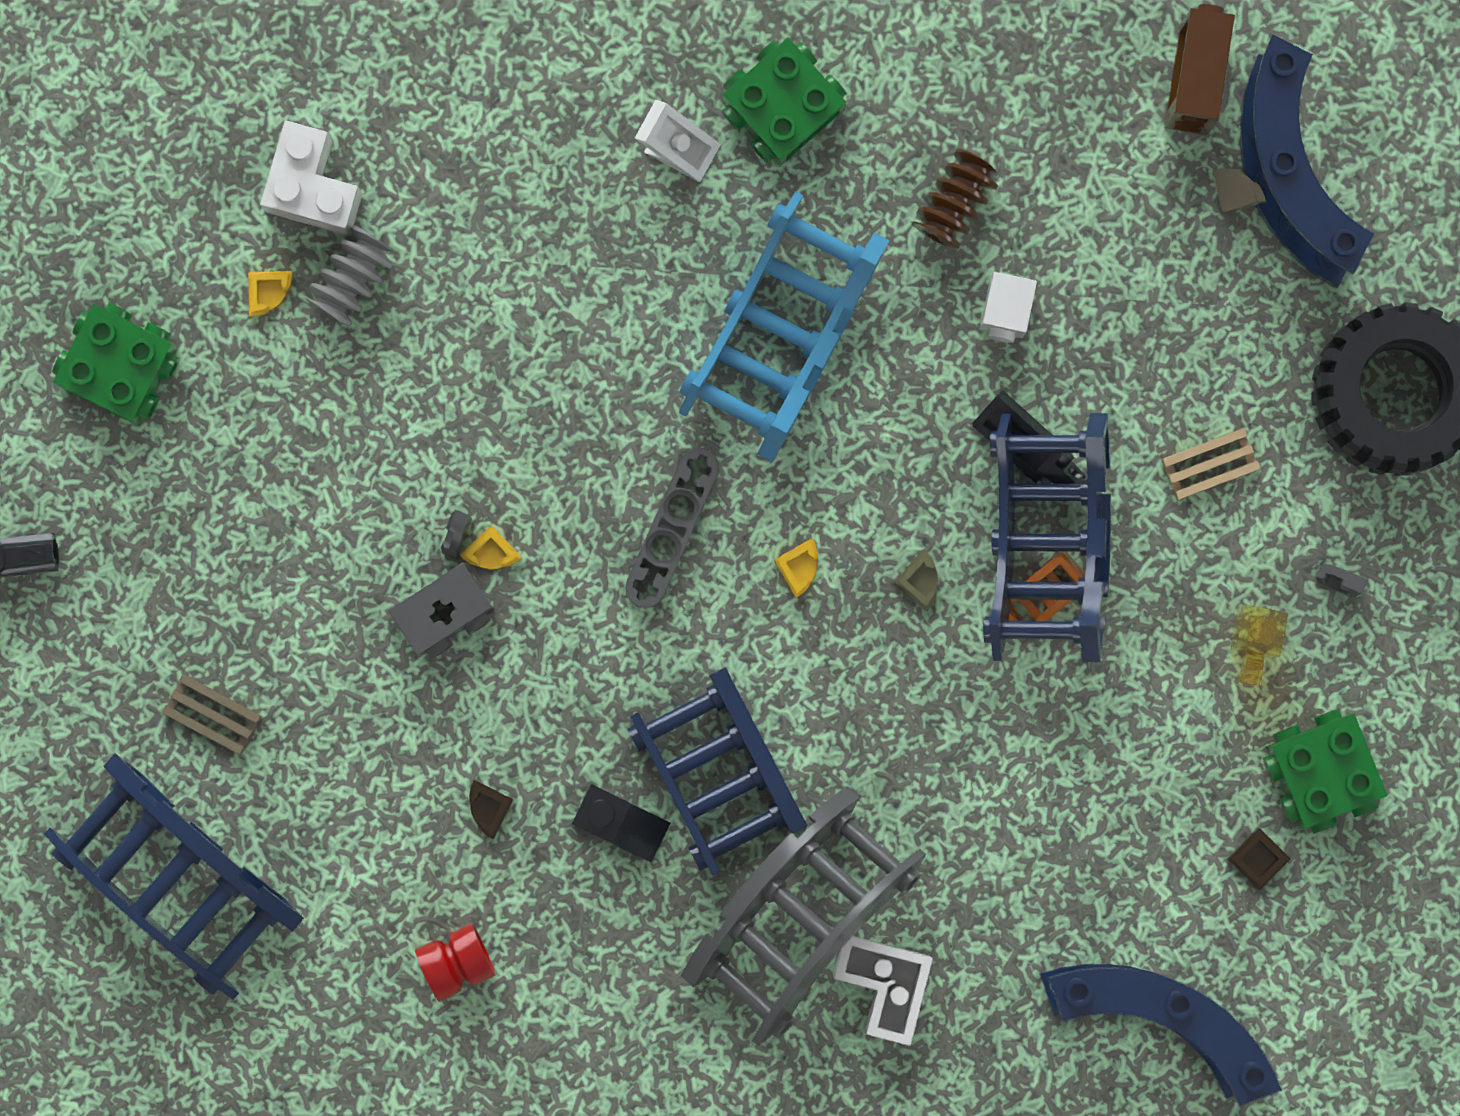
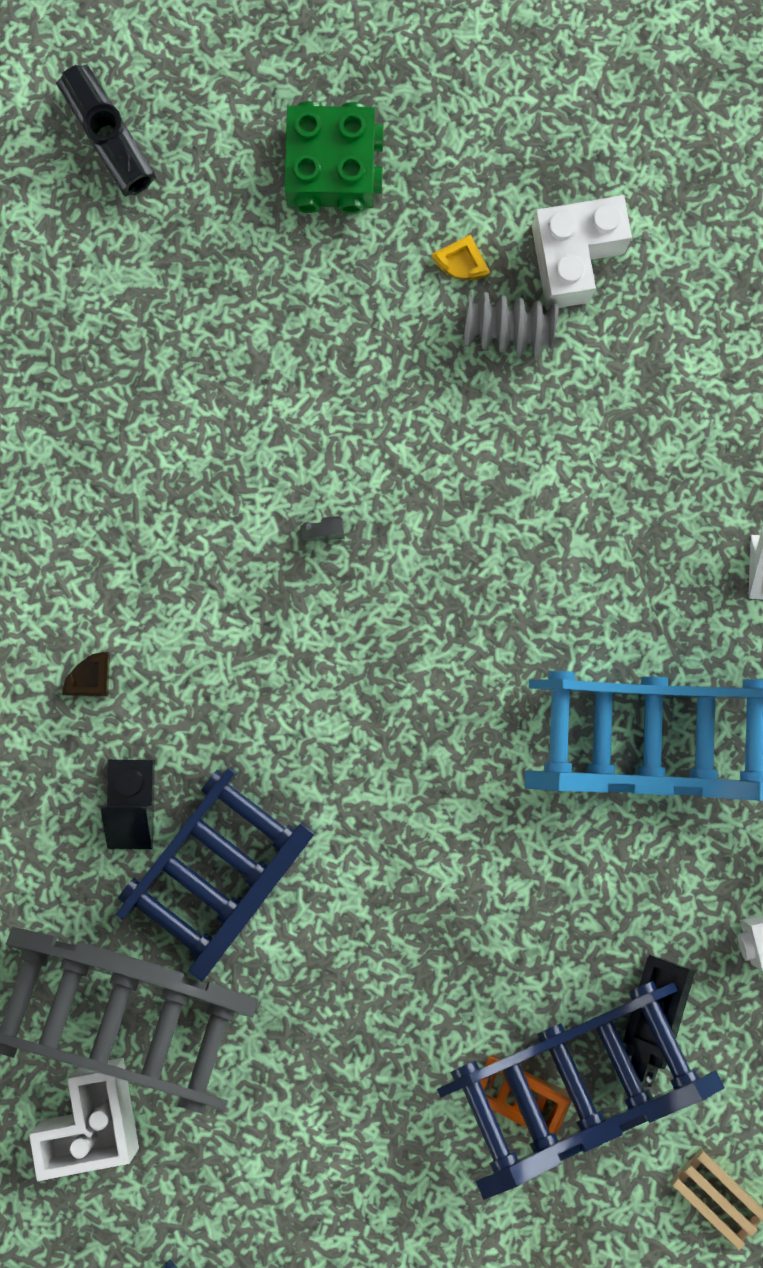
camera: 70 degrees right, 0 degrees up
(179, 696) = (61, 355): dark tan tile -> none
(453, 588) = (232, 529): dark grey brick -> none
(490, 551) = (322, 569): yellow tile -> none
(667, 526) = (420, 717): dark grey beam -> none
(799, 566) = (440, 856): yellow tile -> none
(920, 580) = (481, 975): olive tile -> none

